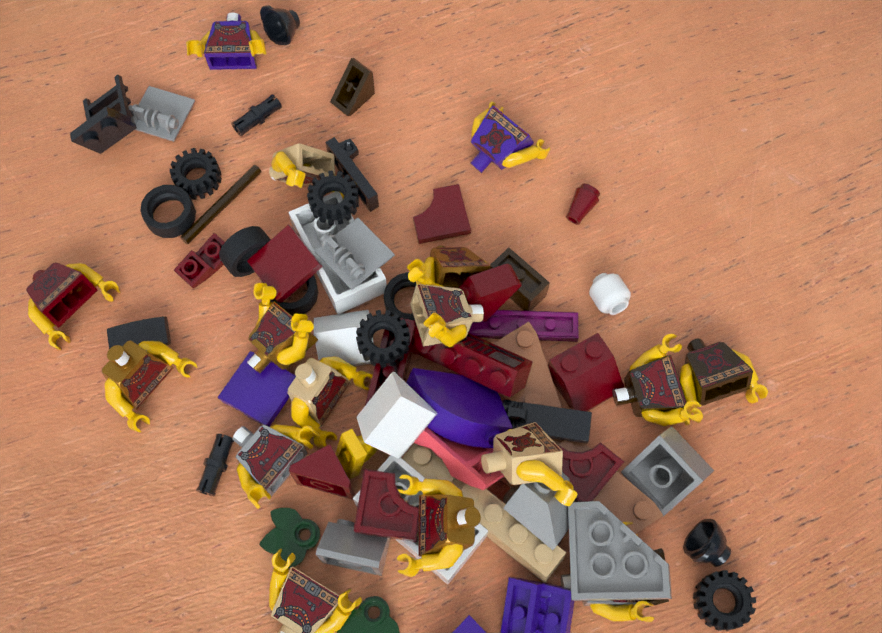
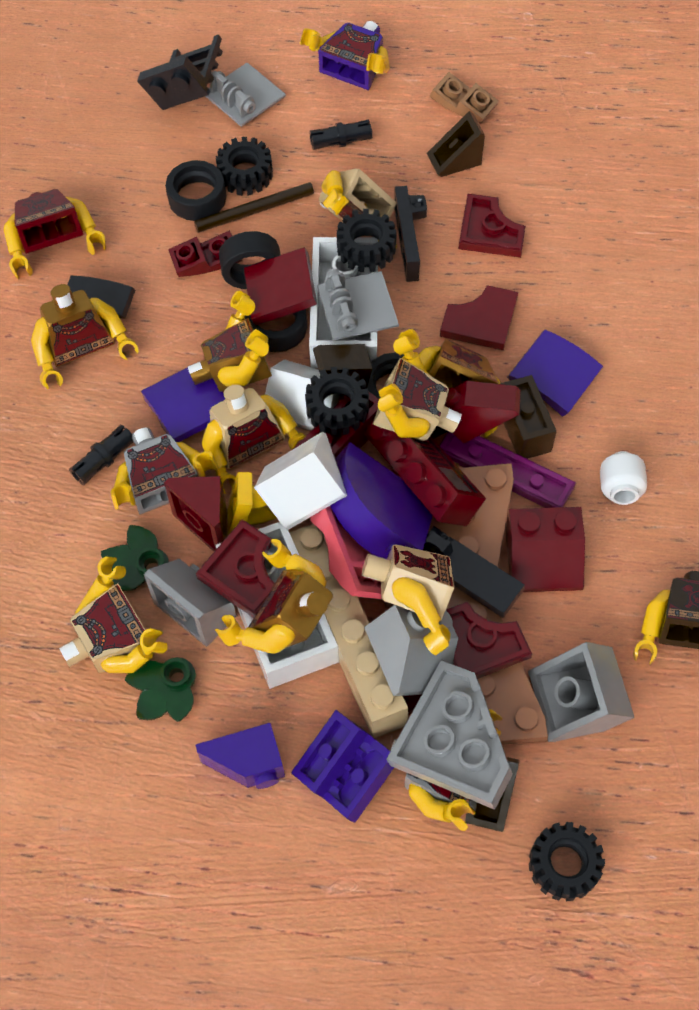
camera: 30 degrees right, 5 degrees down
(279, 24) = (417, 52): black piece -> none
(332, 47) = (461, 99): none -> medium nougat slope
(368, 301) = (347, 356): none -> dark brown slope
(407, 143) = (488, 229): none -> dark red tile
(502, 141) = (593, 268): torso -> none
(520, 230) = (558, 370): none -> dark purple slope
(583, 202) = (648, 371): dark red cone -> none
(655, 388) = (619, 597): torso -> none
(707, 543) = (581, 792): black piece -> none

